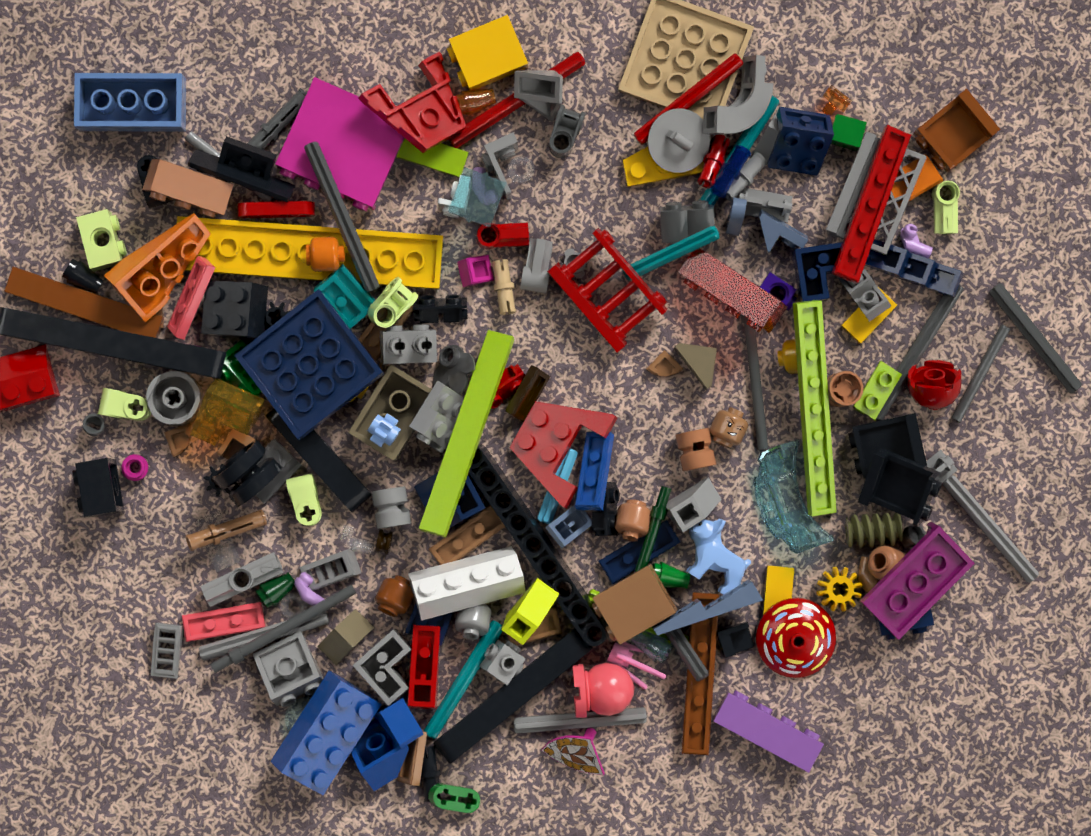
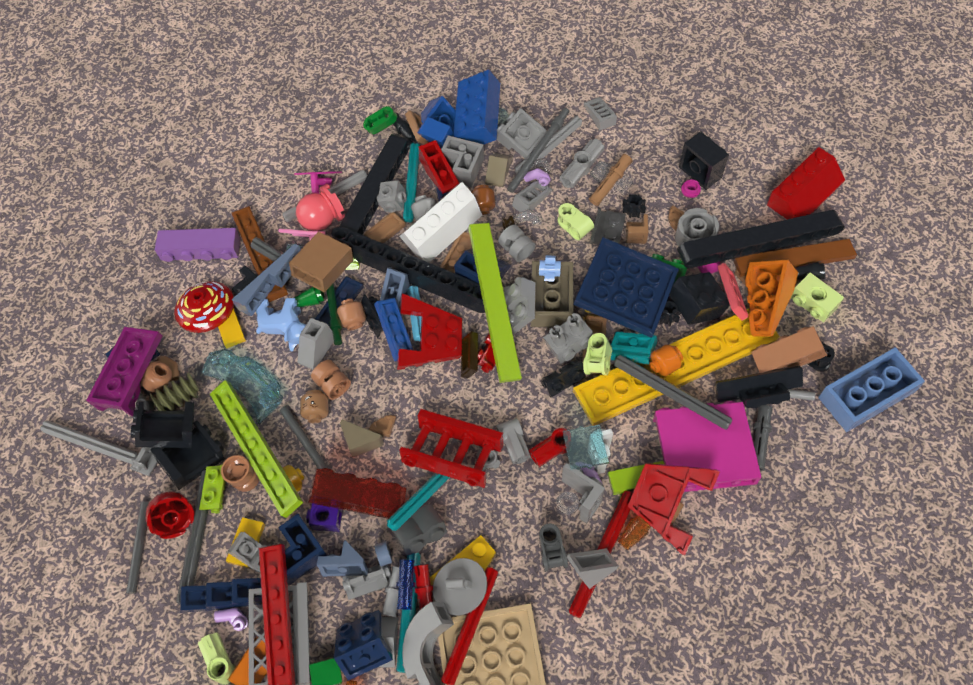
camera: 155 degrees right, 25 degrees down
(96, 420) = (732, 193): dark grey hinge -> none
(120, 405) = (727, 213): yellowish green piece -> none
(223, 621) = (576, 141): coral tile -> none
(224, 407) = (660, 237): clear yellow brick -> none
(244, 469) = (620, 203): black wheel -> none
(275, 590) = (558, 166): dark green cone -> none
(276, 209) = (708, 385): red beam -> none
(325, 464) = (566, 245): black beam -> none
(454, 368) = (529, 343): flat silver plate -> none
(475, 270) = (555, 416): dark pink slope -> none
(487, 53) = (647, 573): yellow brick -> none
(503, 287) = (528, 414): tan pin -> none
(529, 611) = (389, 223): neon yellow slope -> none
(838, 598) = (185, 347): yellow gear -> none
(1035, 338) = (103, 597): dark grey axle -> none

